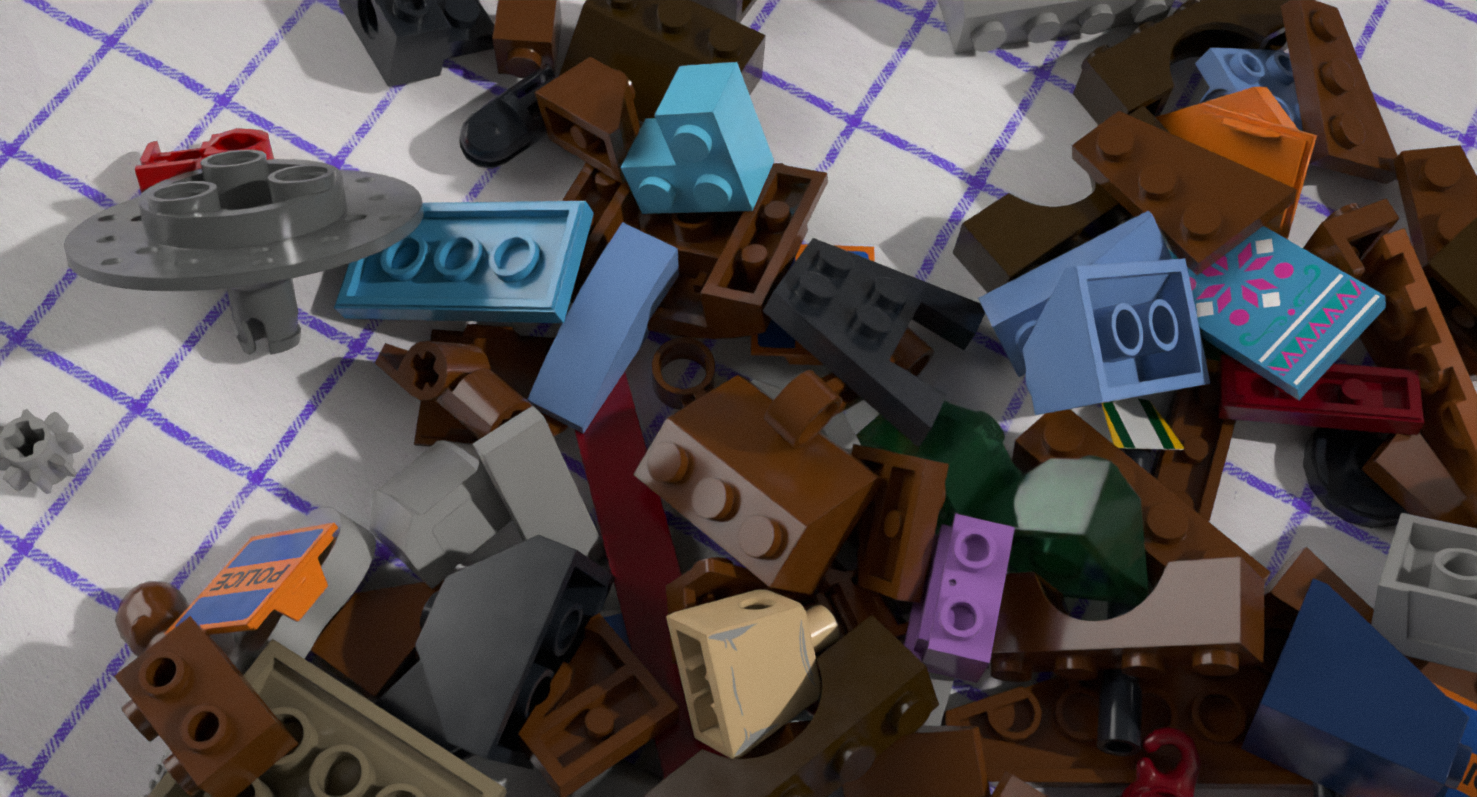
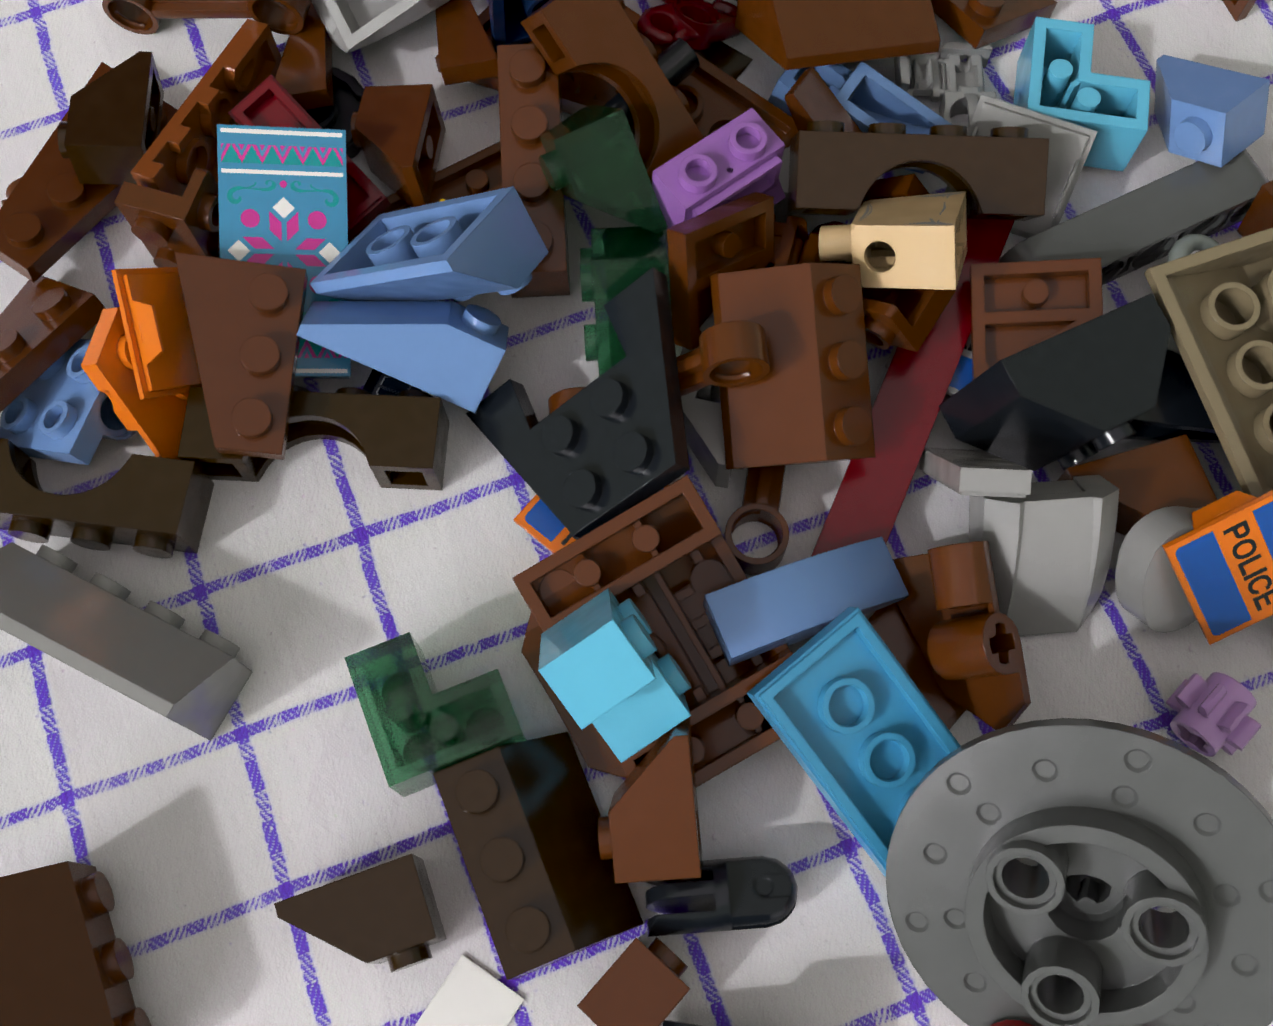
camera: 135 degrees left, 5 degrees up
(219, 480) = (1213, 714): none -> lavender gear
(811, 69) = (423, 728): none -> clear green brick
(1267, 471) = (401, 137): none -> reddish brown slope

